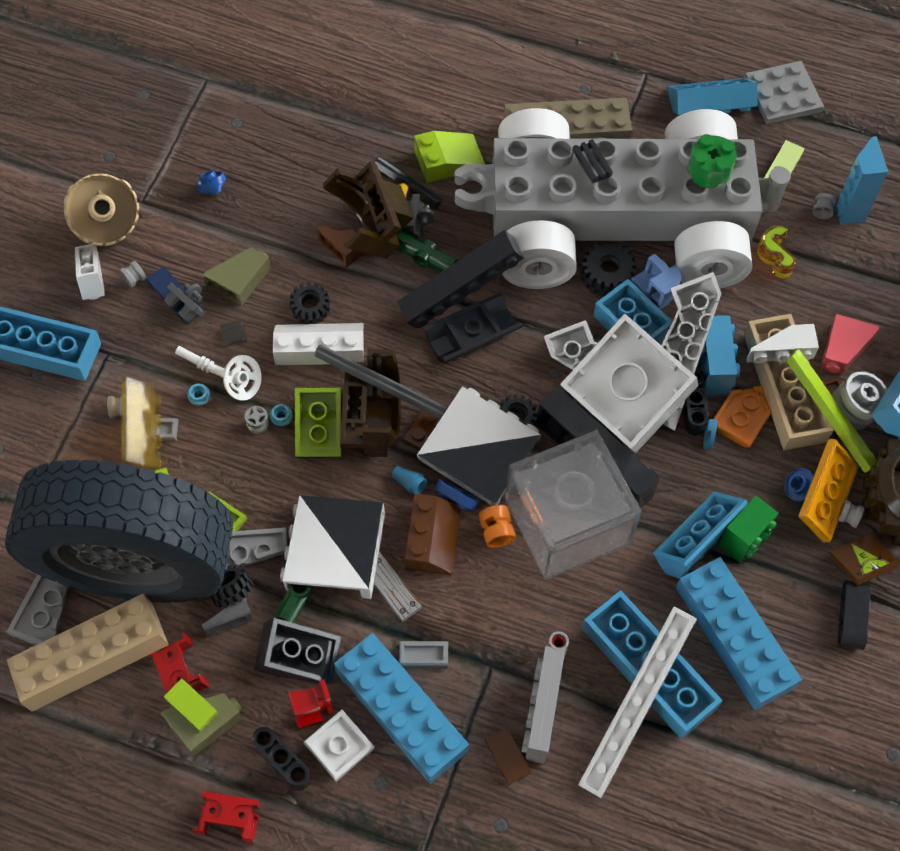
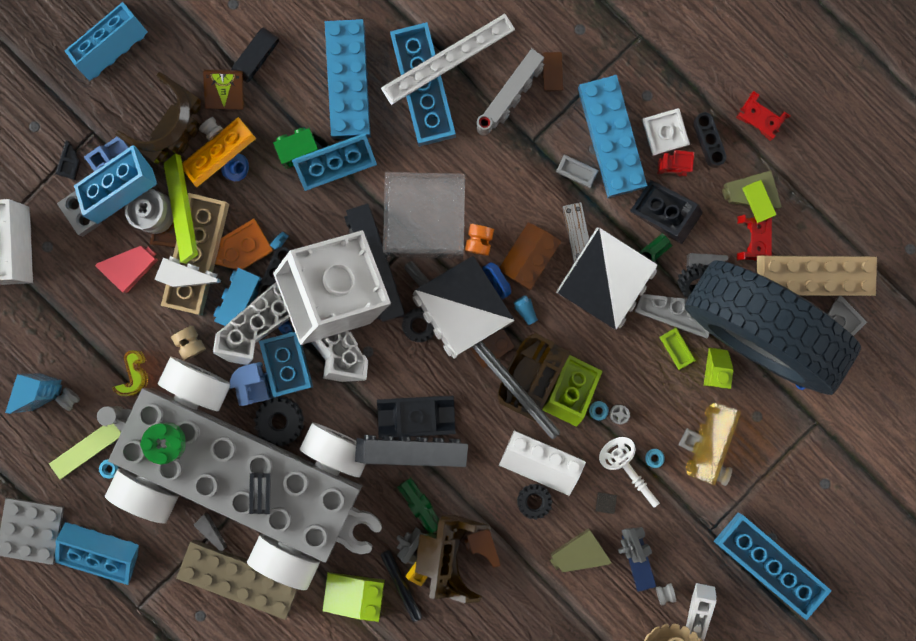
camera: 155 degrees left, 25 degrees up
(741, 299) = (190, 349): none -> tan wheel

